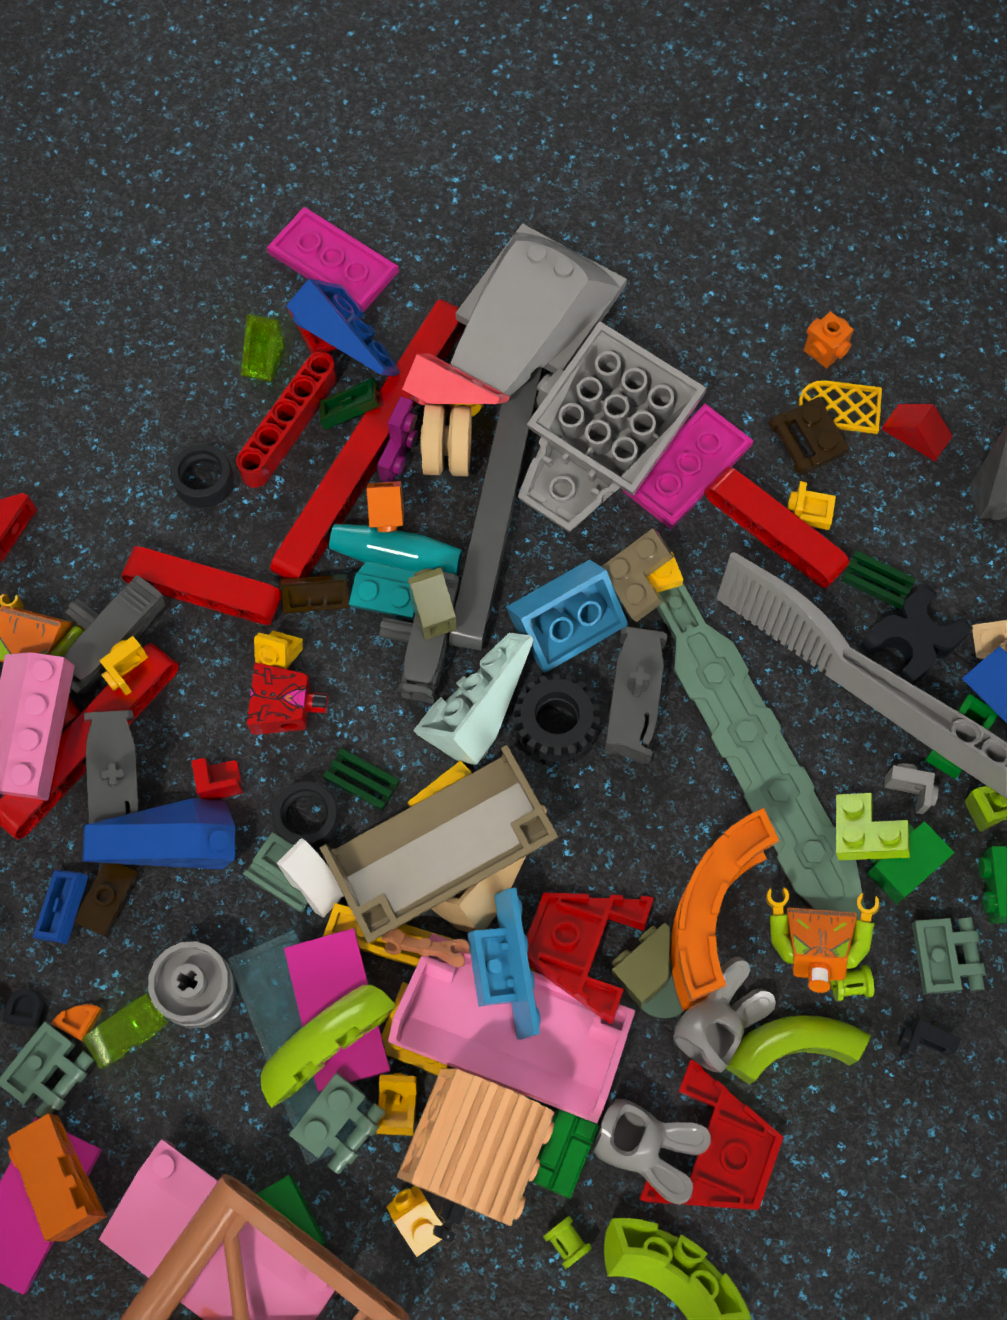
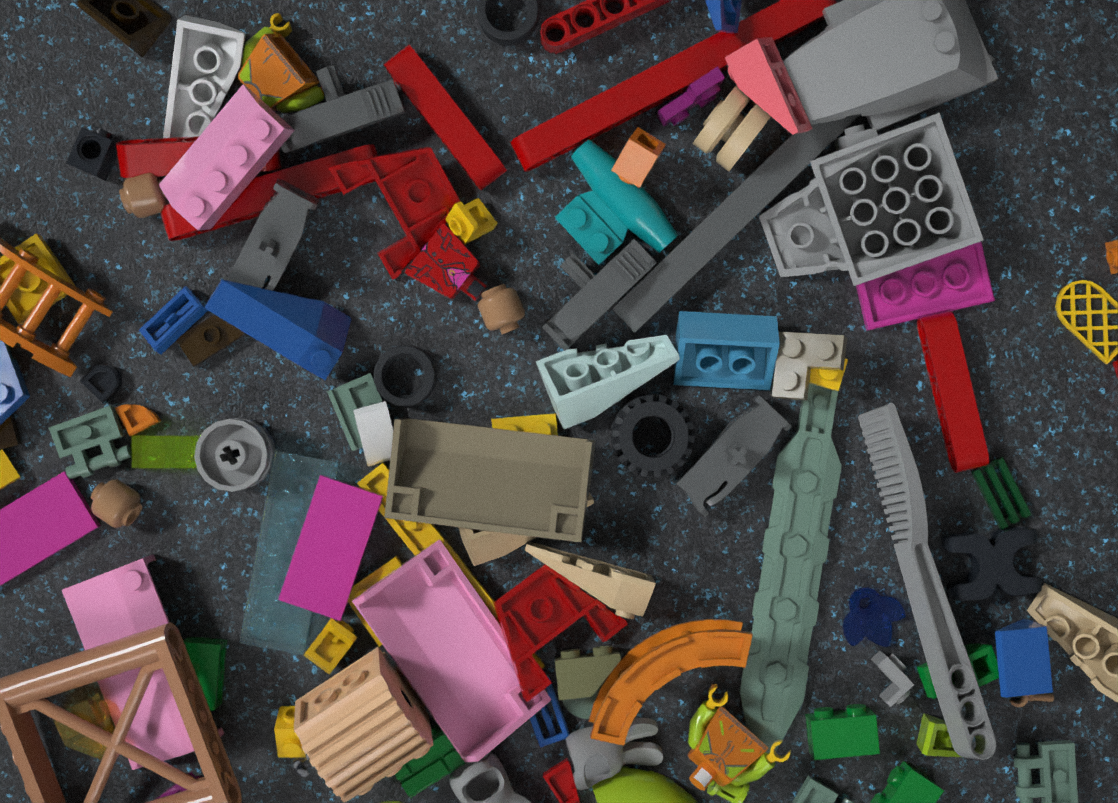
camera: 30 degrees right, 20 degrees up
(54, 1179) = (49, 535): orange wedge -> none
(104, 1110) = (116, 503): none -> medium nougat head
(121, 660) = (339, 148): yellow bracket -> none
(212, 656) = (413, 189): none -> red wing
(217, 780) = (355, 297): red panel -> none
(315, 593) = (533, 190): dark brown plate -> none
(320, 1040) = (298, 568): lime brick -> none
(328, 1115) = (274, 623): sand green plate -> none
(336, 765) = (462, 391): dark green tile -> none
(349, 403) = (673, 35): dark green tile -> none
(352, 703) = (501, 309): none -> medium nougat head
(432, 603) = (613, 281): slope -> none
(445, 950) = (409, 531): nougat piece -> none
(503, 965) = (474, 604): dark azure bracket -> none
(620, 868) = (613, 585): none -> tan wedge
(655, 1027) = (554, 737): none -> blue tile
(812, 507) = (995, 395): yellow bracket -> none
(817, 431) = (1054, 331): dark brown plate -> none
(860, 750) = (872, 621): none -> clear blue plate
(861, 837) = (818, 690): lime plate -> none

